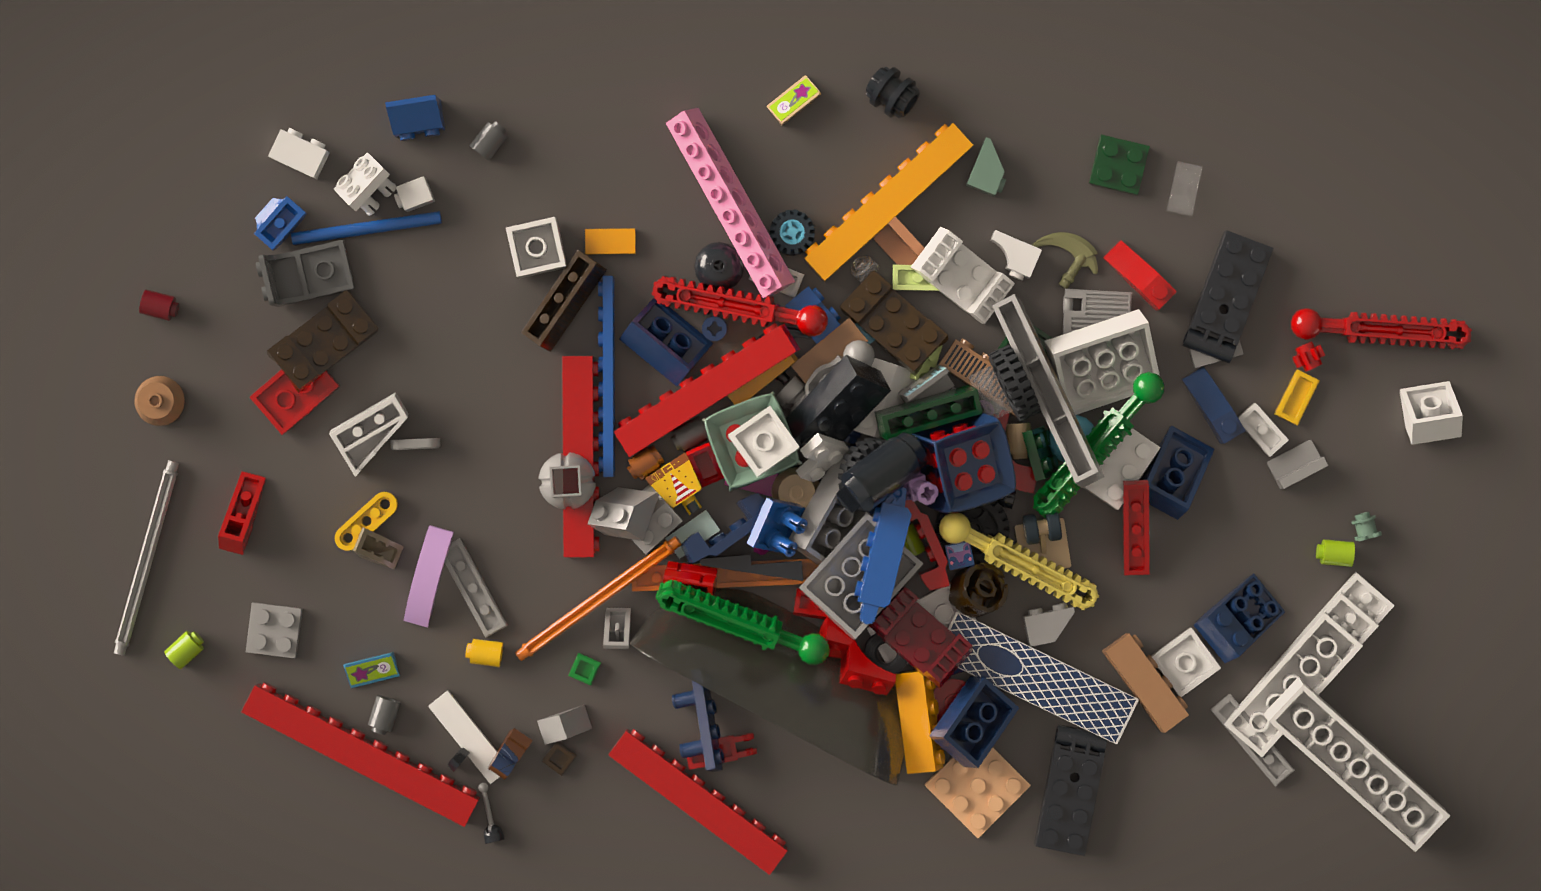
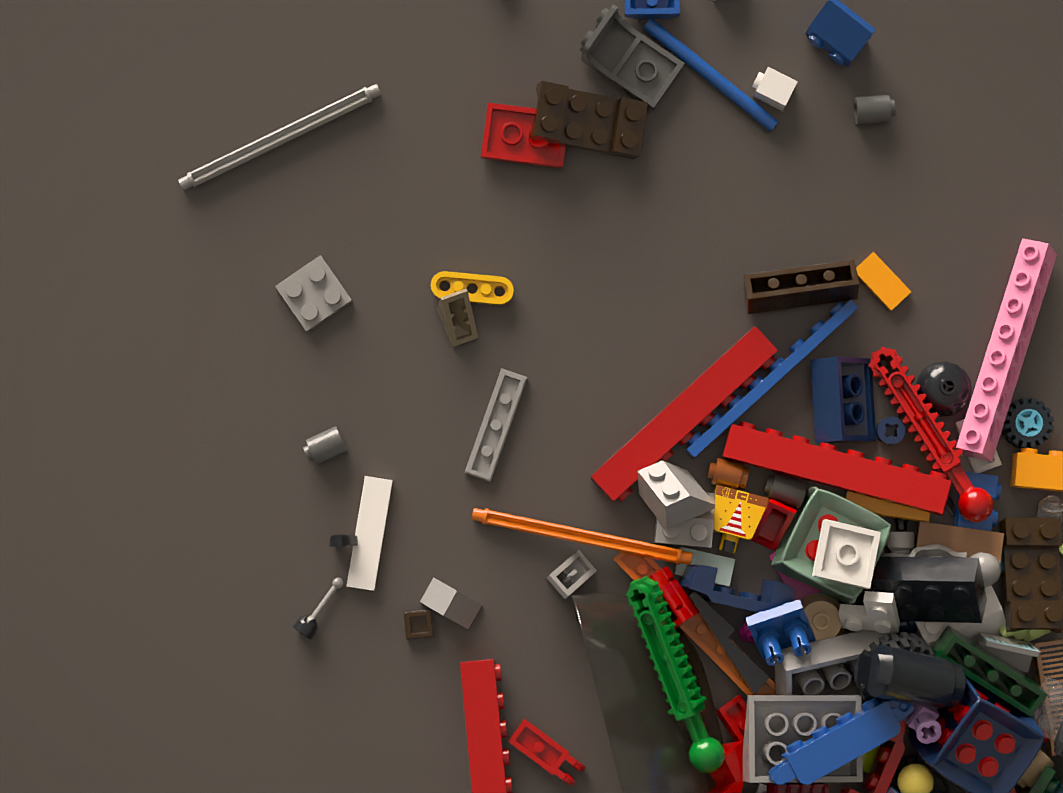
camera: 45 degrees right, 5 degrees down
(159, 400) = (418, 33): medium nougat cone -> none
(184, 649) = (233, 234): lime brick -> none
(241, 513) = (386, 181): red slope -> none
(361, 754) = (275, 457): red brick -> none
(362, 182) = (746, 36): white plate -> none
(368, 431) = (548, 223): white wedge -> none
(371, 670) = (353, 403): slope -> none
(415, 444) = (572, 271): light grey tile -> none
(427, 576) = (472, 379): lavender slope -> none
(485, 652) = (451, 483): yellow brick -> none
(509, 753) = (387, 579): leg -> none
(536, 247) = (823, 225): white brick -> none
(584, 669) = (512, 578): green tile -> none
(585, 480) = (640, 432): light grey piece -> none
(709, 730) = (556, 730): dark blue plate -> none

